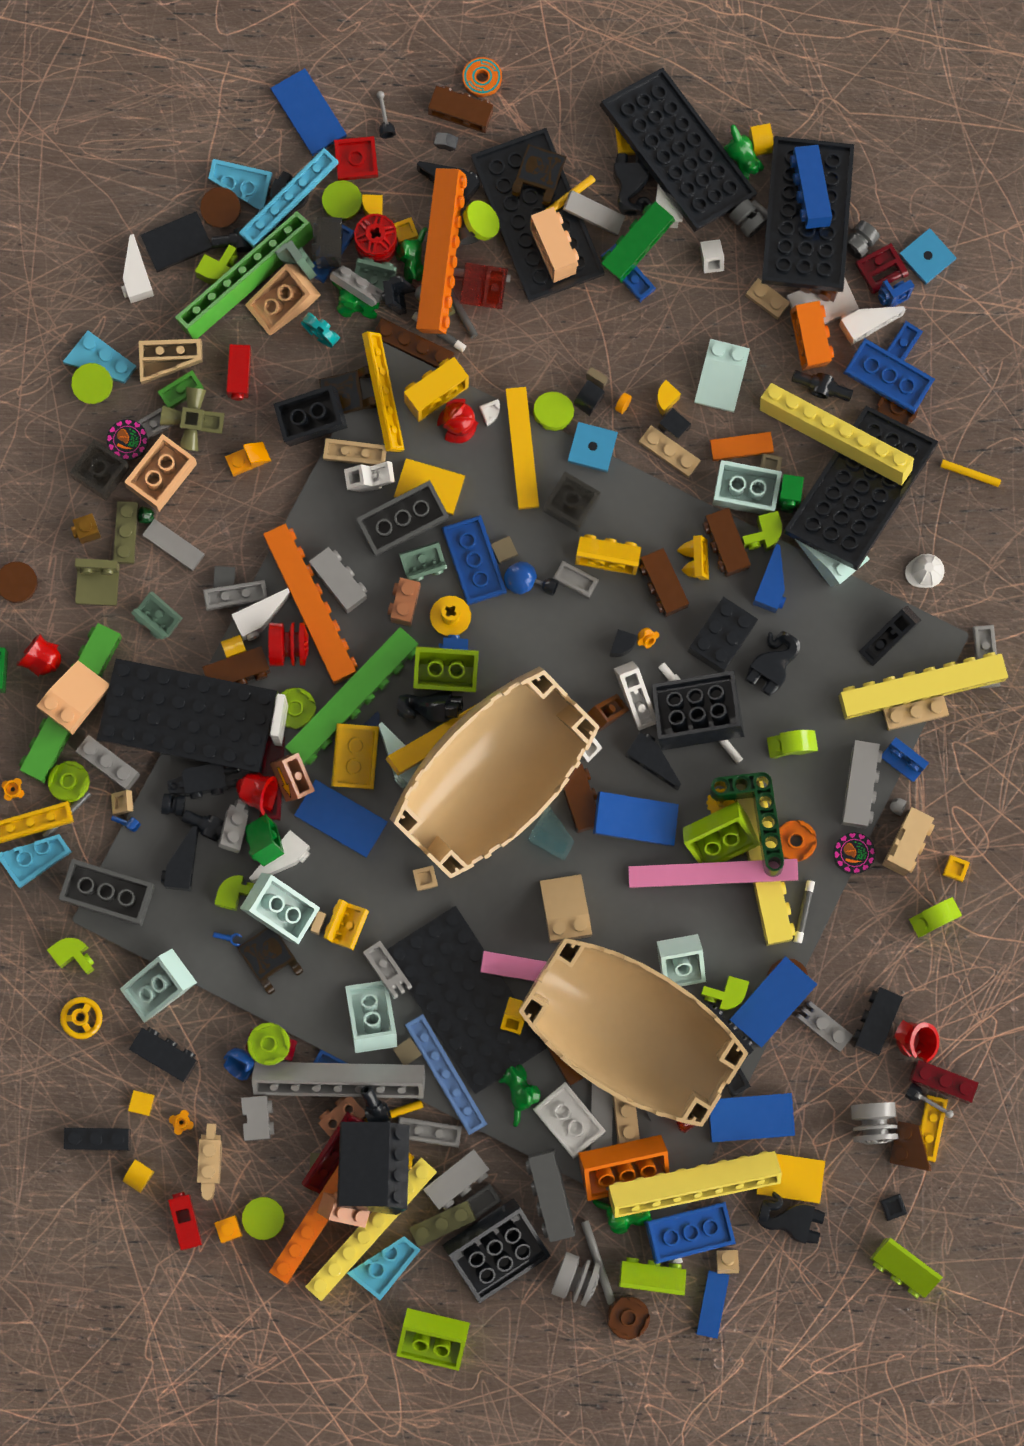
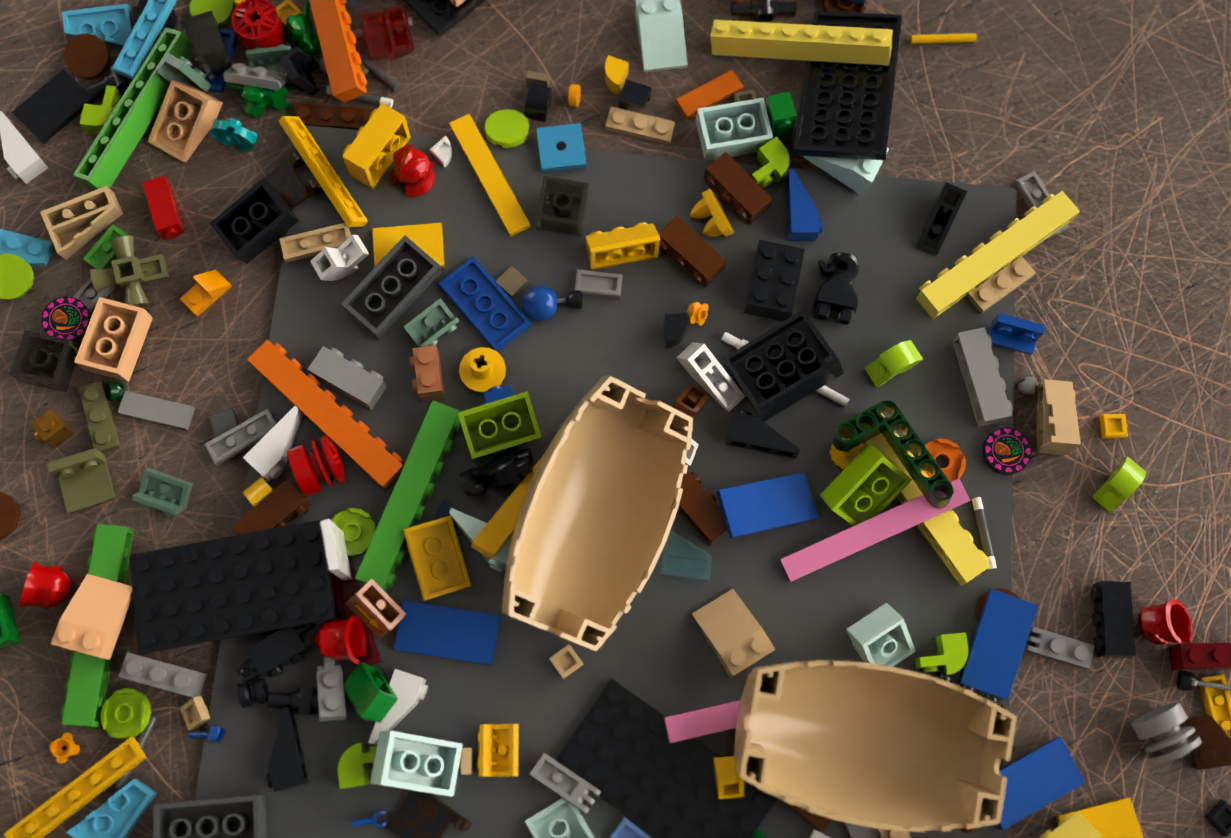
camera: 20 degrees left, 5 degrees down
(924, 571) = (942, 146): white piece -> none

